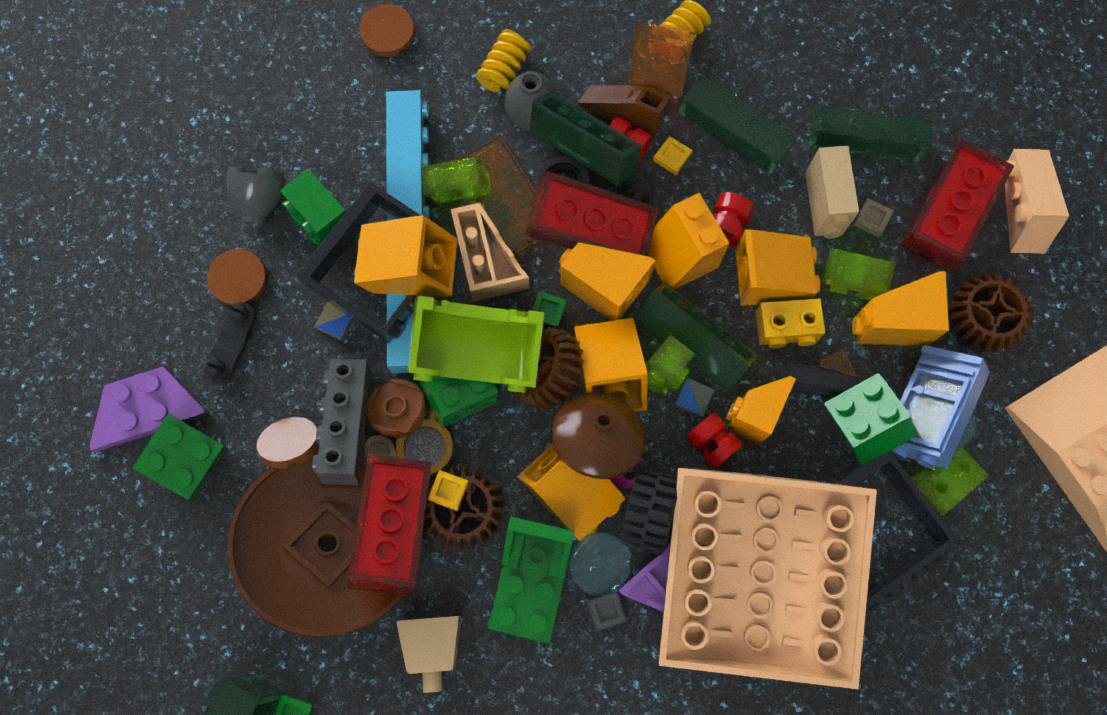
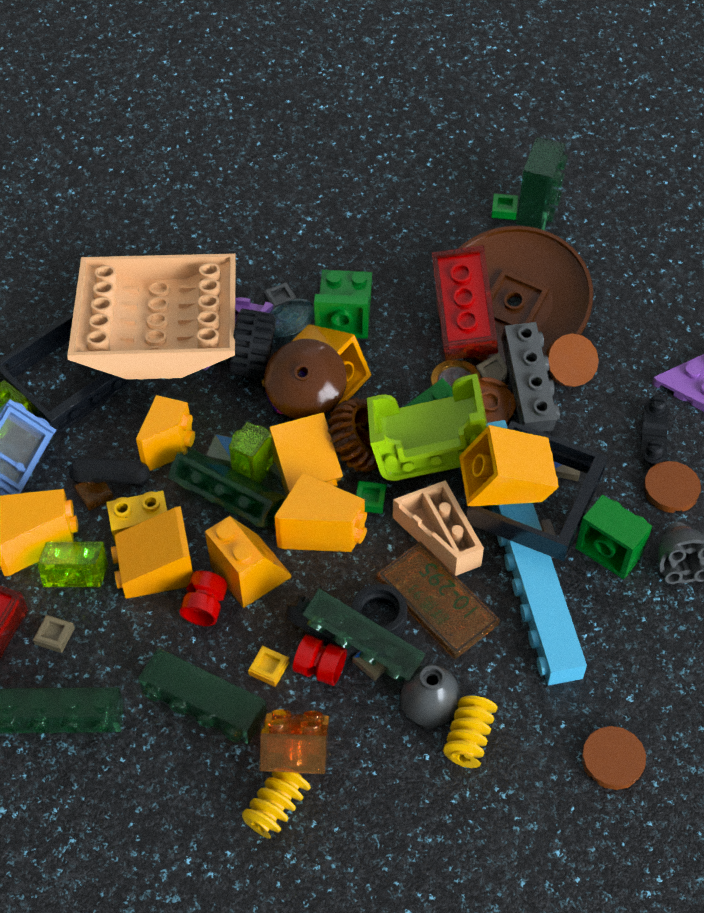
camera: 170 degrees right, 20 degrees down
(179, 457) = (656, 336): green brick -> none
(430, 648) = (412, 254): tan torso -> none
(448, 490) = (425, 337): yellow tile -> none
(456, 180) = (487, 587): clear neon green brick -> none
(457, 522) = (413, 327): reddish brown gear -> none
(578, 212) = (342, 558): red brick -> none
(634, 103) = (331, 699): reddish brown slope -> none
(714, 429) = (207, 414): red wheel -> none
(831, 191) = (100, 631): tan brick -> none
(871, 419) = (66, 433): brick -> none

